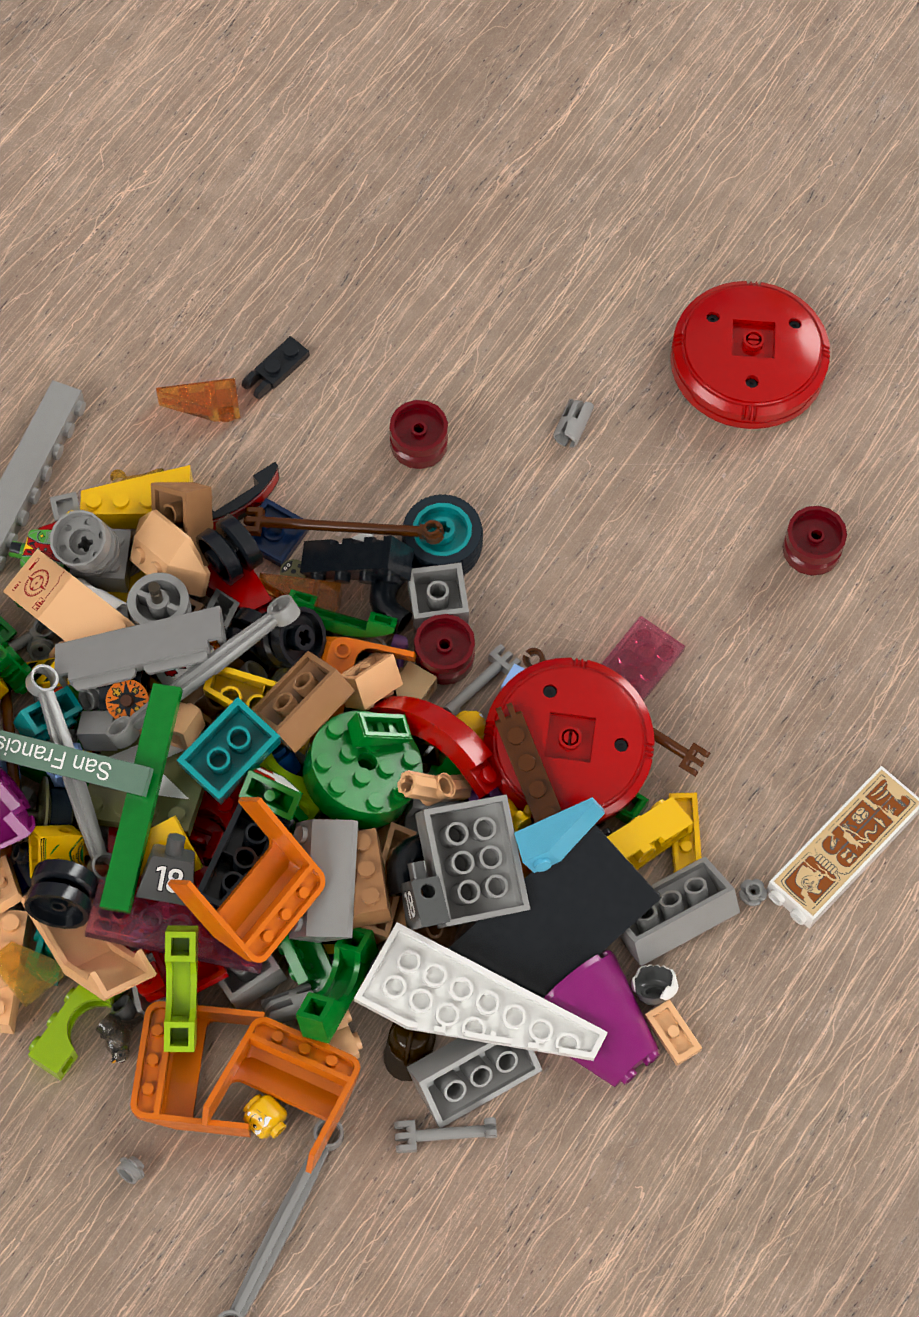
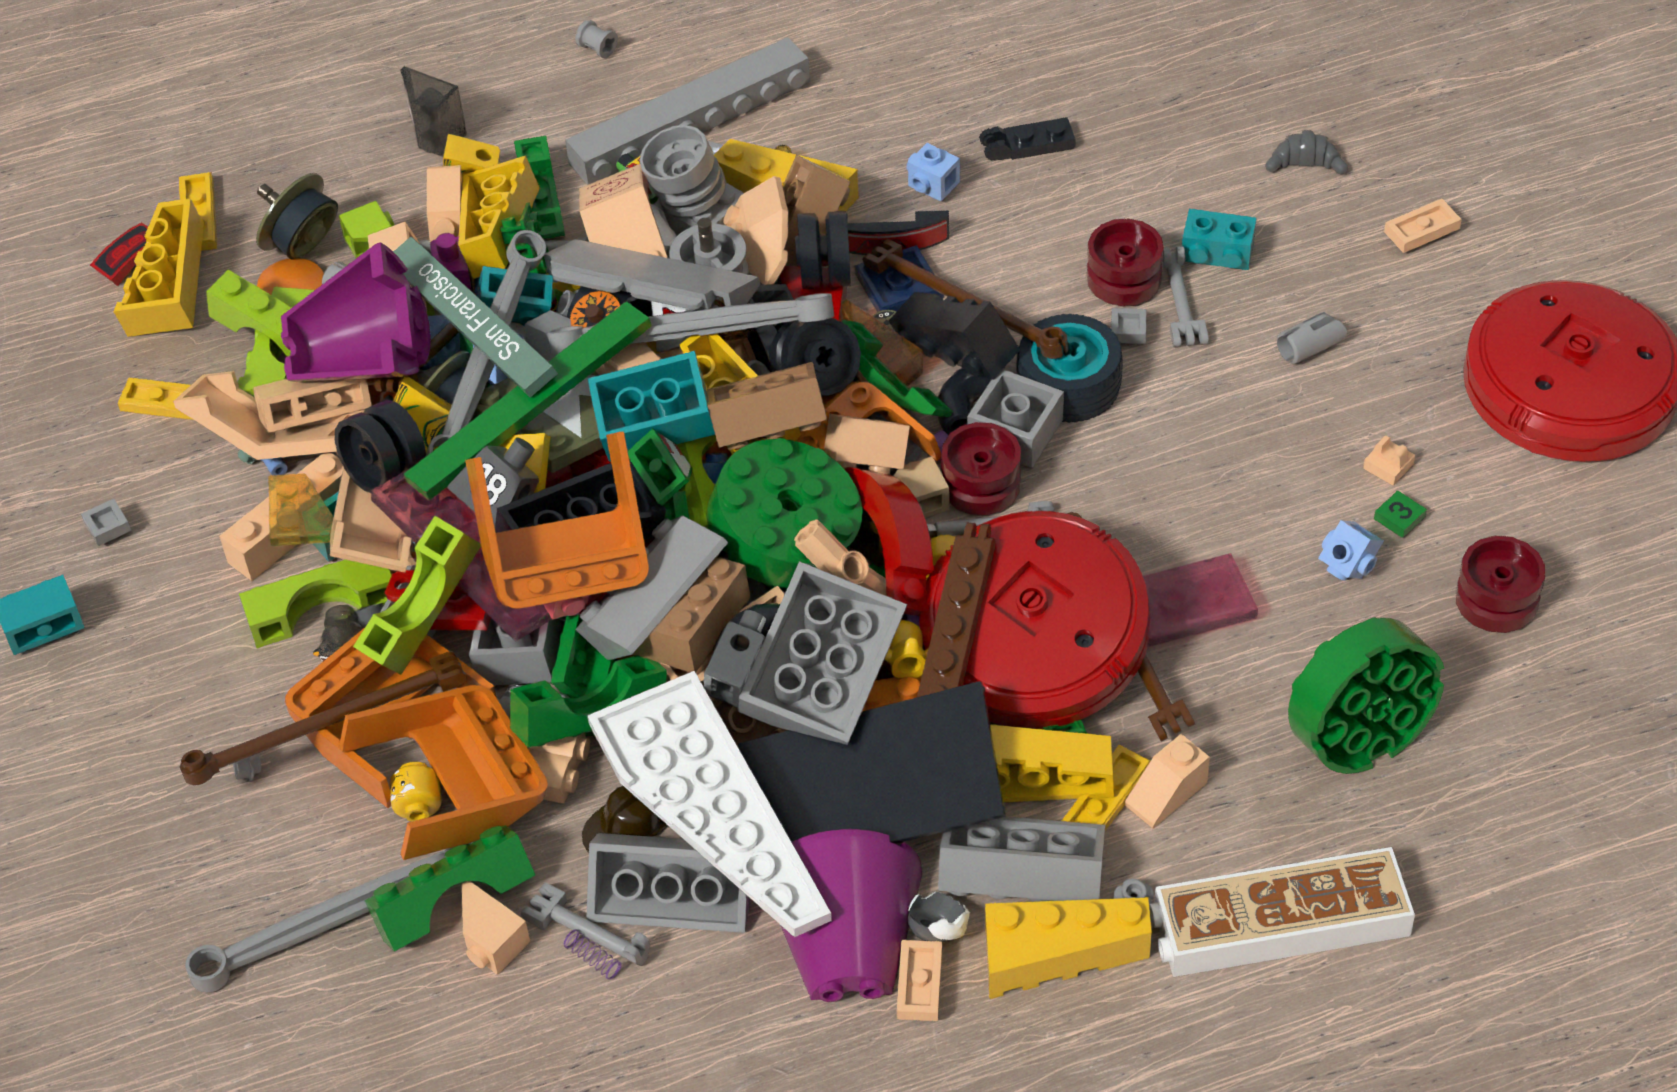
camera: 40 degrees right, 15 degrees down
(208, 400) = (927, 124): clear orange slope -> none
(226, 1029) = (200, 767): none -> reddish brown hinge
(236, 434) = (933, 171): none -> light blue brick
(330, 1200) = (405, 908): none -> green arch
(363, 736) = (806, 471): green slope -> none
(388, 1177) = (490, 929): none -> light nougat slope
(452, 480) = (1129, 325): none -> light grey plate
(462, 379) = (1219, 239): none -> teal brick
(466, 273) = (1306, 150): none -> dark grey piece
(483, 1144) = (612, 964): none -> medium lavender piece
(487, 458) = (1186, 325): none -> light grey hinge
(555, 836) = (931, 674): medium azure slope -> none
(581, 293) = (1422, 225): none -> light nougat plate
(682, 486) = (1389, 461): none -> light nougat tile
(711, 570) = (1350, 550): none -> light blue brick
(715, 522) = (1400, 514): none -> green tile
(719, 802) = (1169, 781): none -> light nougat slope
(732, 954) = (1062, 938): none -> yellow wedge
(804, 675) = (1365, 694): none -> green brick

